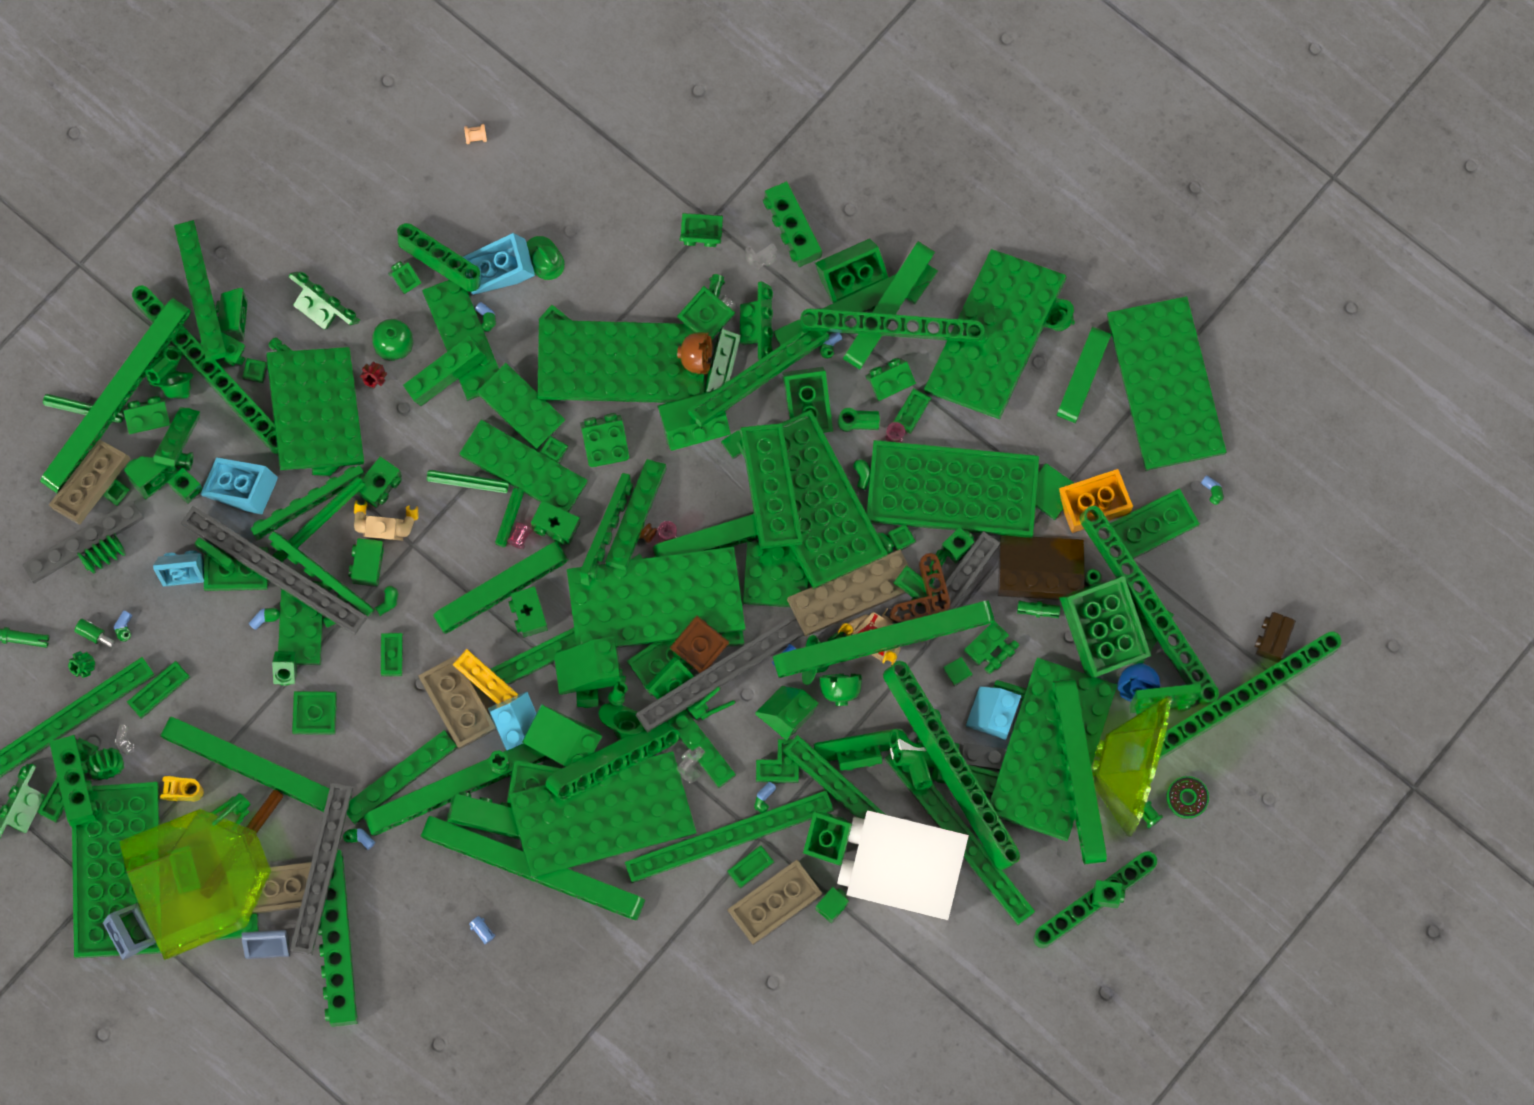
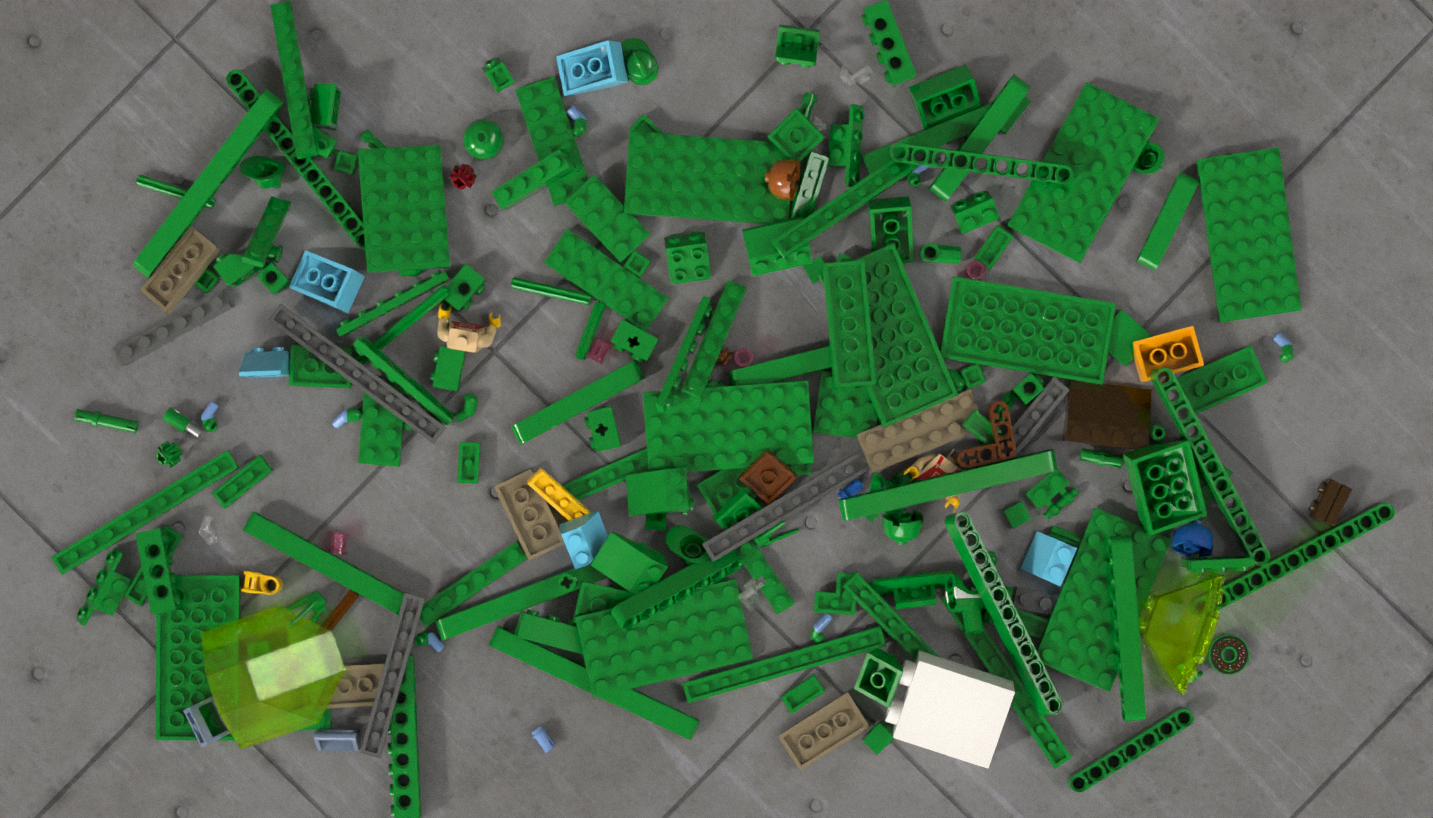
camera: 10 degrees right, 15 degrees up
(102, 553) = (191, 344): green piece -> none
(105, 763) = (189, 555): green gear -> none
(146, 415) = (237, 202): green bracket -> none
(164, 365) = (255, 155): green piece -> none
(214, 554) = (300, 354): green tile -> none
(260, 743) = (338, 543): none -> clear pink bush
(287, 661) = (364, 471): green brick -> none
(314, 712) = (392, 516): green plate -> none
(318, 304) = (412, 98): bracket -> none
(428, 250) = (530, 49): green beam -> none
(617, 696) = (685, 520): green pin -> none
(787, 710) = (848, 545): green slope -> none
(864, 472) = (941, 307): green arm -> none
(1099, 898) = (1134, 751): green brick -> none

